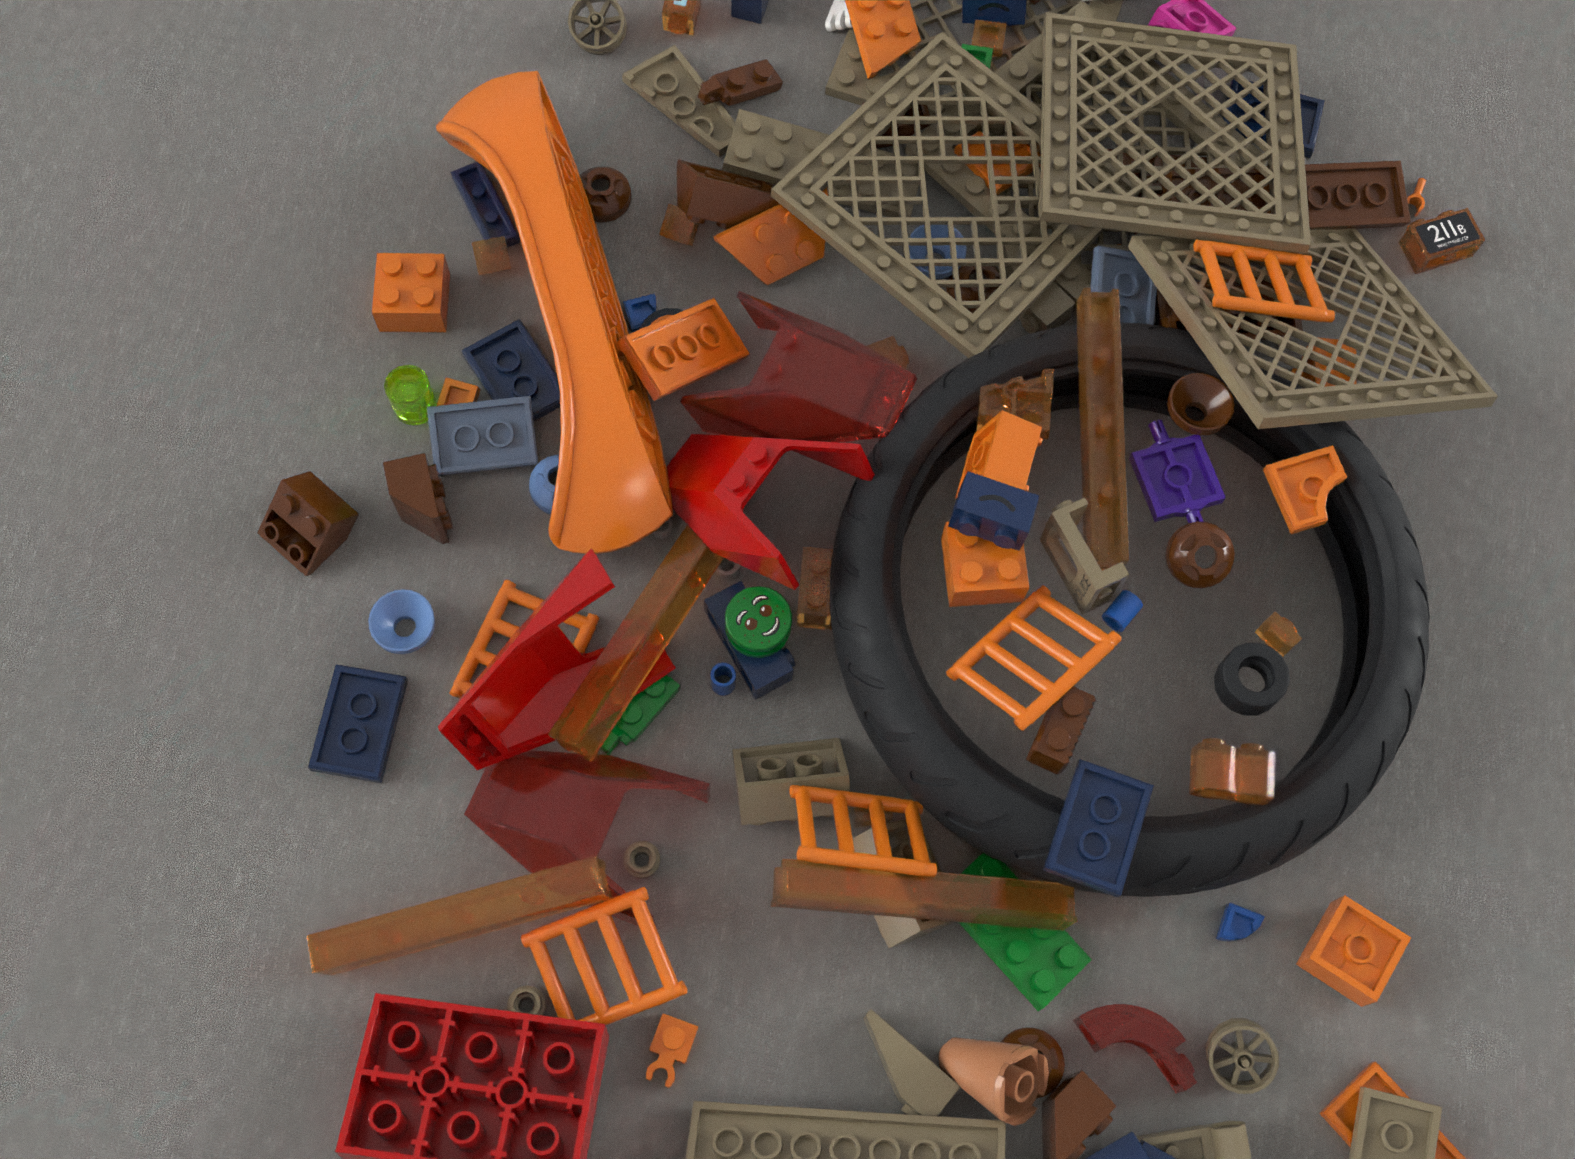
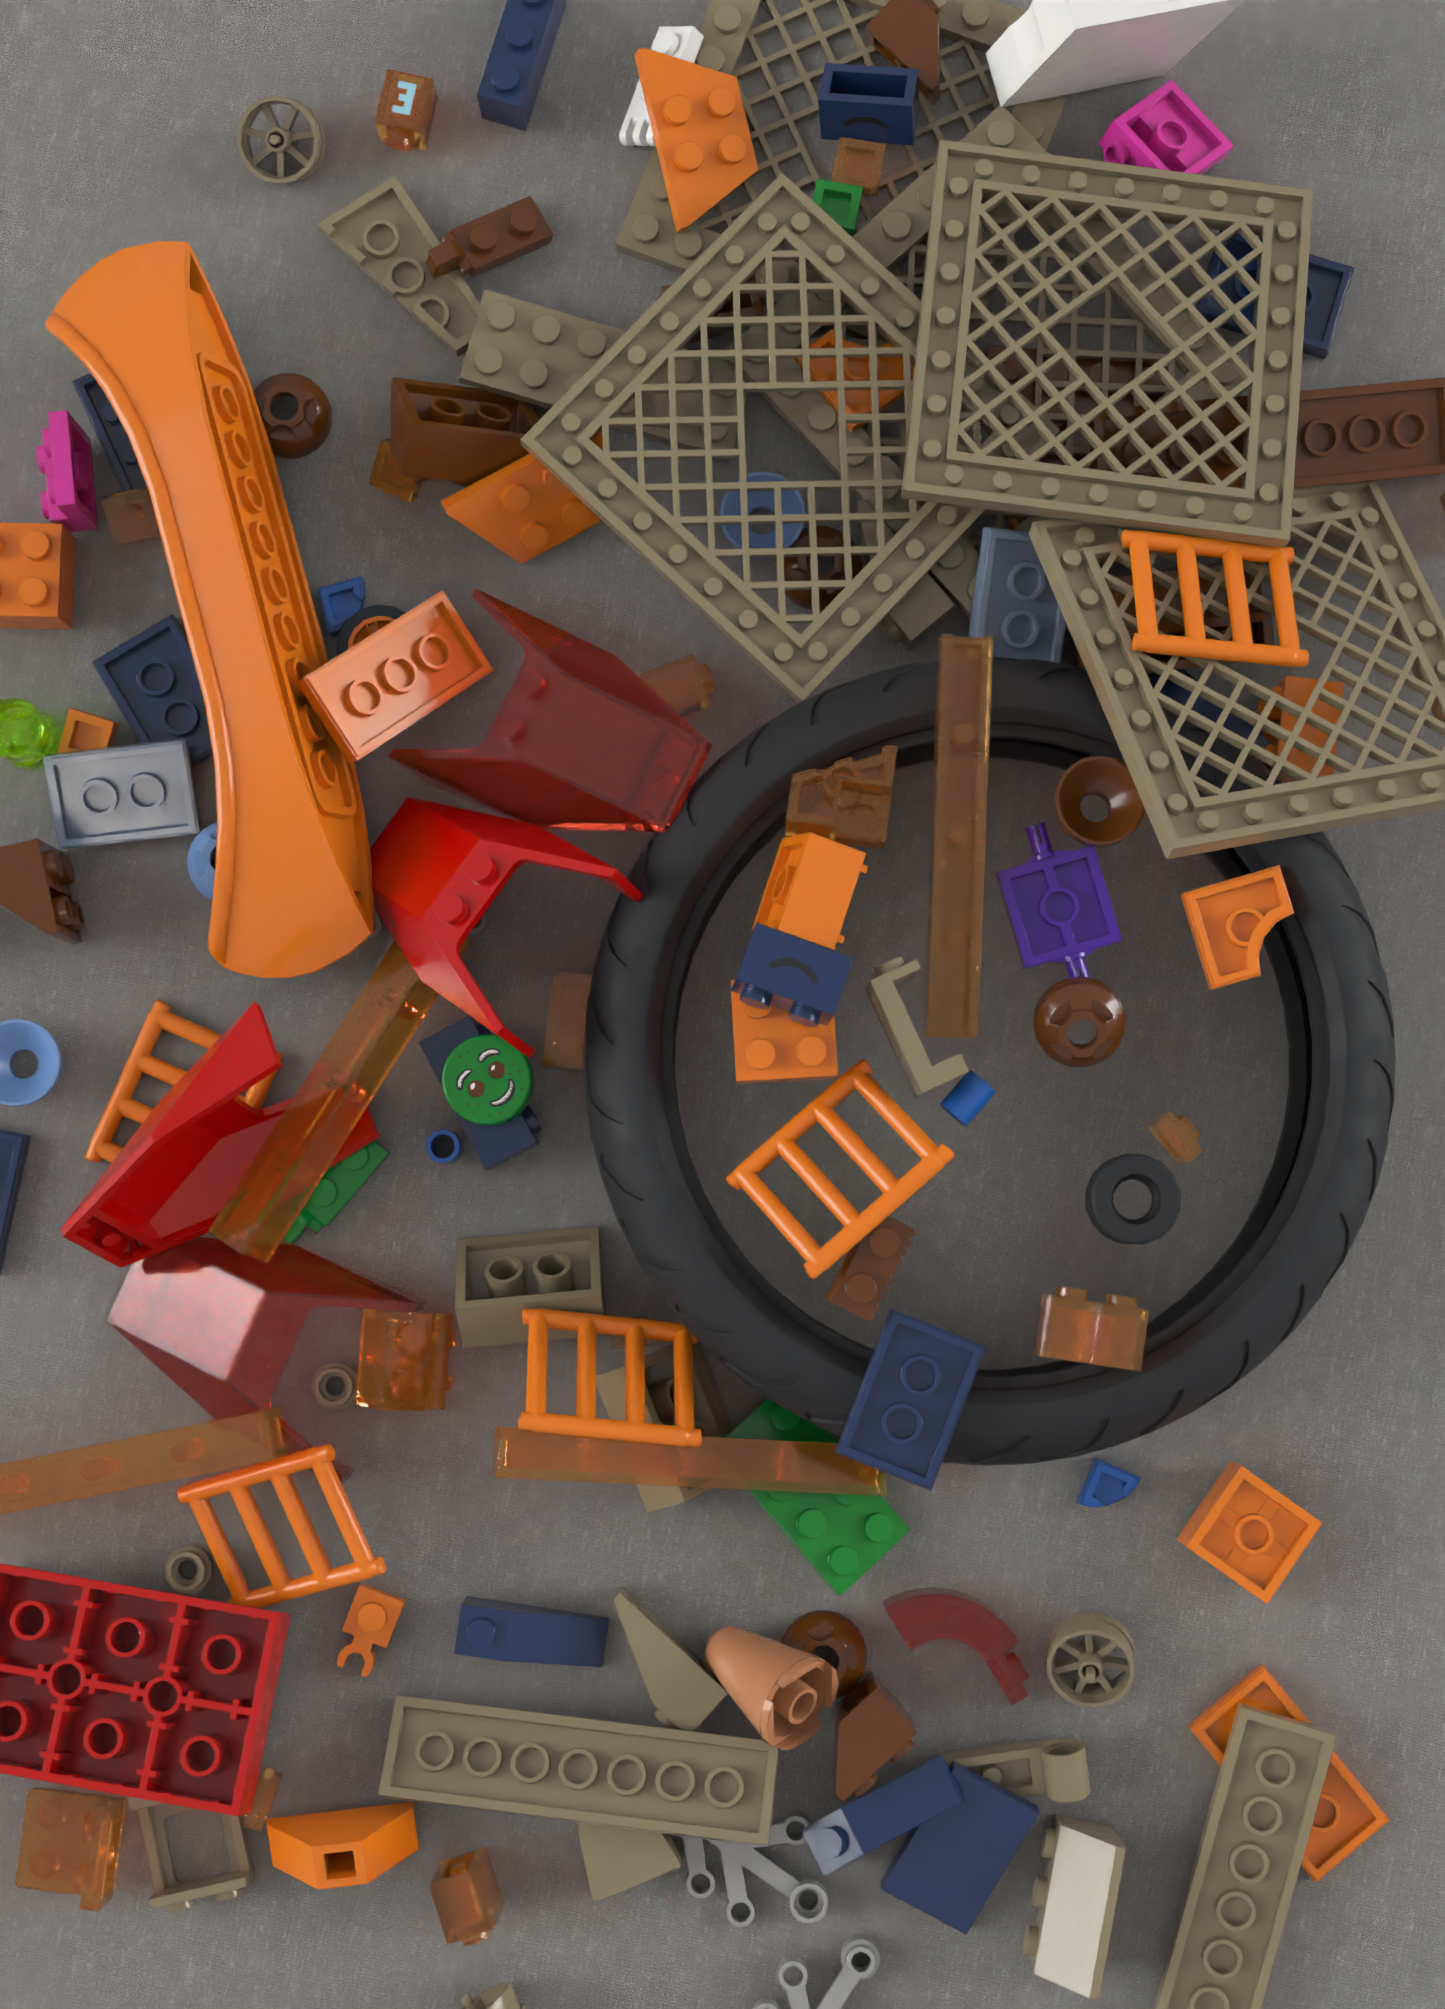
camera: 10 degrees right, 15 degrees up
(448, 223) = (69, 474): none -> dark pink plate
(695, 834) = (397, 1360): none -> clear orange brick
(800, 1048) = (529, 1633): none -> dark blue slope

